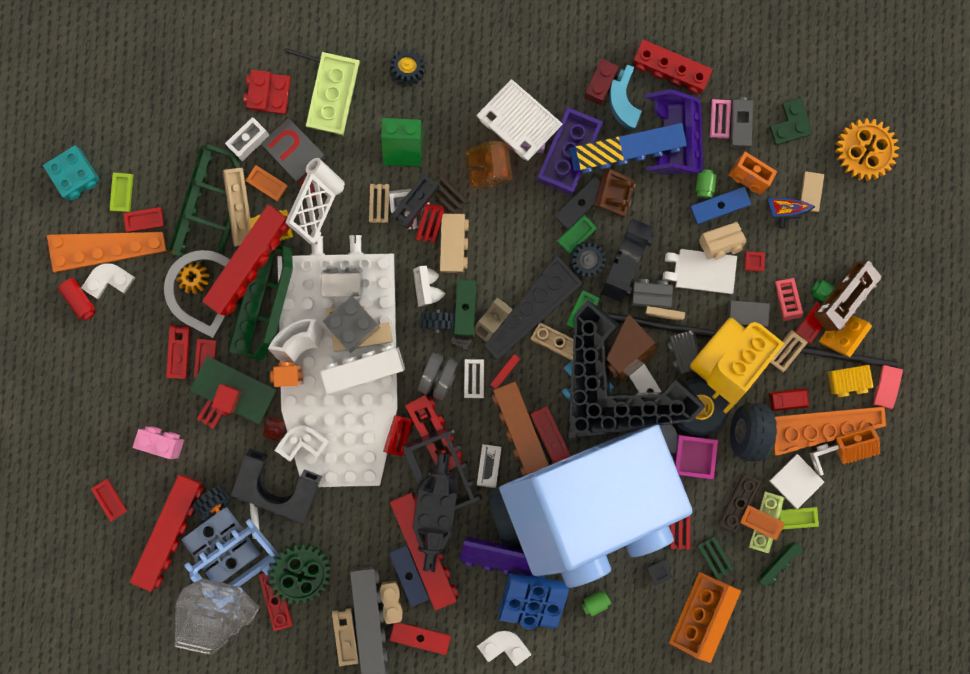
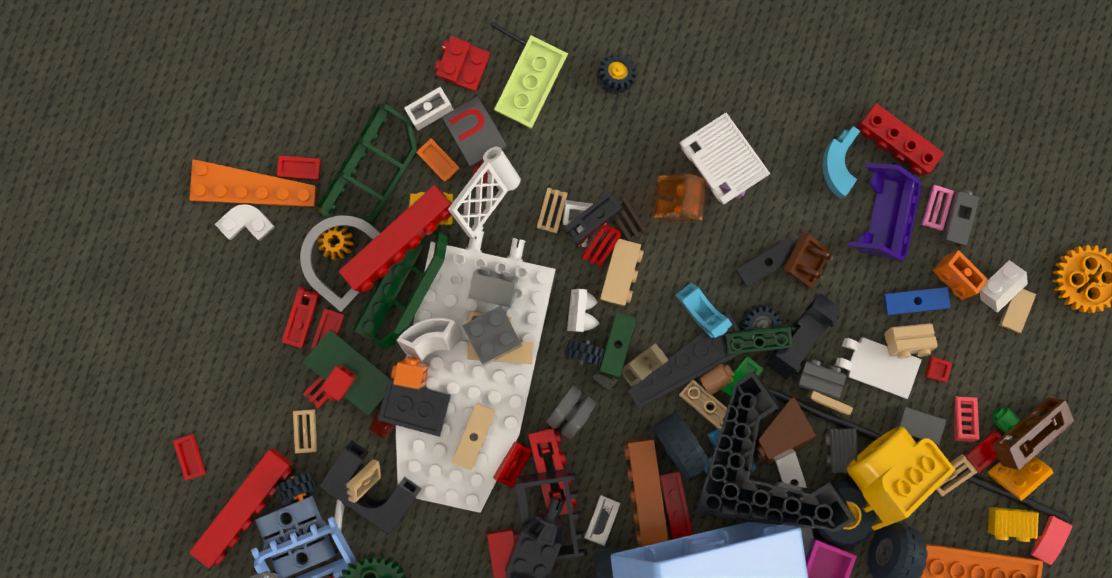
camera: 15 degrees right, 0 degrees up
(71, 173) = (234, 100): teal brick -> none
(77, 299) = (207, 235): red brick -> none
(121, 192) = (282, 133): lime tile -> none
(157, 443) = (255, 410): bright pink brick -> none
(213, 449) = (306, 449): none -> tan tile
(237, 204) = (401, 175): tan tile -> none
(269, 481) = (363, 481): none -> tan tile
(298, 406) = (414, 408): none -> black tile
(301, 437) = (411, 442): white plate -> none
(359, 406) = (469, 448): none -> tan tile
(363, 370) = (492, 387): white brick -> none
(402, 142) = (592, 151): green slope -> none
(474, 395) = (604, 439): white tile -> none
(505, 371) = (643, 423): red tile -> none
(532, 259) = (702, 311): none -> medium azure arch
(541, 382) = (681, 445): none -> black wheel
(558, 166) = (769, 204): dark purple brick -> none
(560, 316) = (717, 378): none -> medium nougat brick
(576, 234) = (755, 294): green tile -> none
(599, 267) = (772, 337): none -> dark green tile
(601, 82) = (820, 138): dark red brick -> none
(627, 147) = (837, 215): blue brick -> none
(705, 184) = (906, 274): bright green brick -> none
(788, 209) = (989, 322): shield -> none
(789, 399) = (940, 527): red tile -> none
(792, 174) = (1003, 286): none -> white brick
(796, 125) = (1019, 231): dark green plate -> none

